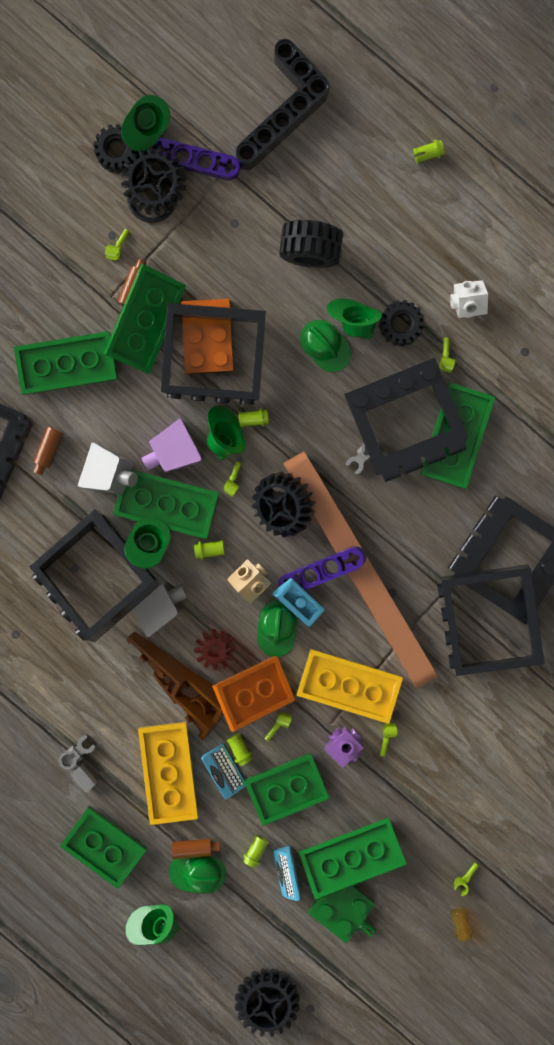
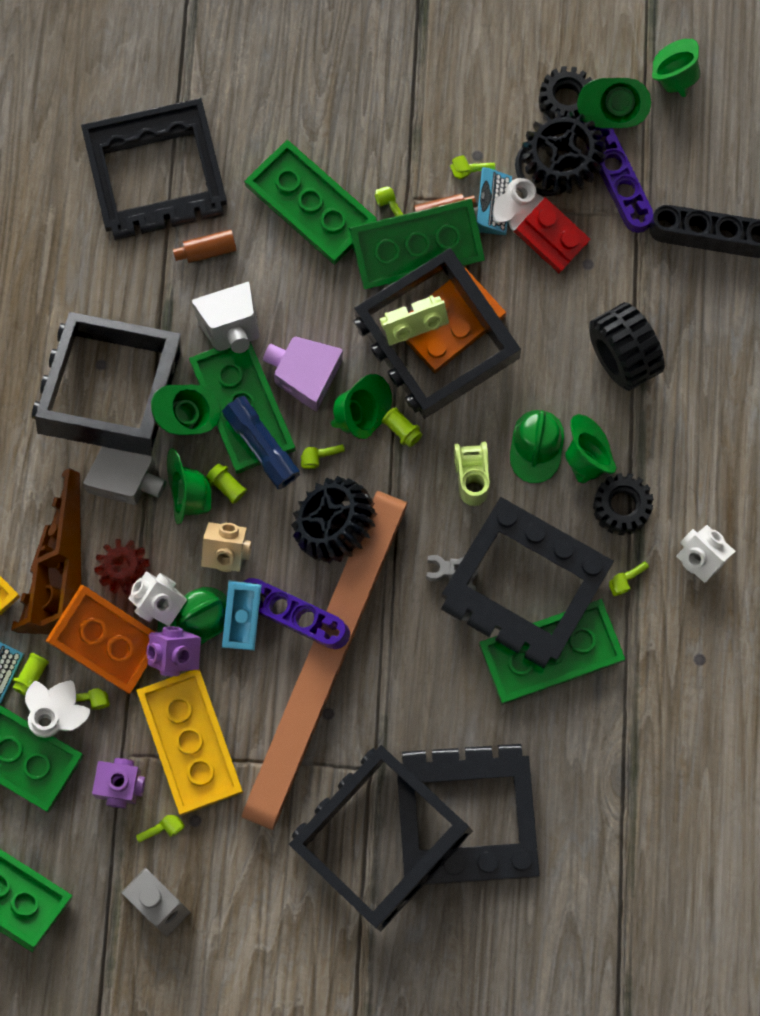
camera: 50 degrees right, 15 degrees down
(97, 314) = (386, 196): none -> lime hand
(149, 62) = (677, 66): none -> green piece
(151, 249) = (491, 187): none -> slope
(171, 238) = (512, 207): none -> white plate
(197, 575) = (188, 488): none -> green piece
(200, 231) = (552, 235): none -> red plate
(202, 351) = (427, 316): none -> yellowish green hinge
(202, 512) = (273, 459): none -> dark blue axle
(252, 644) = (156, 598): none -> white brick
(270, 748) = (56, 705): none -> white plate
(291, 658) = (173, 651): none -> medium lavender brick
(312, 396) = (472, 466): none -> yellowish green piece
(427, 774) = (155, 902): none -> light grey torso

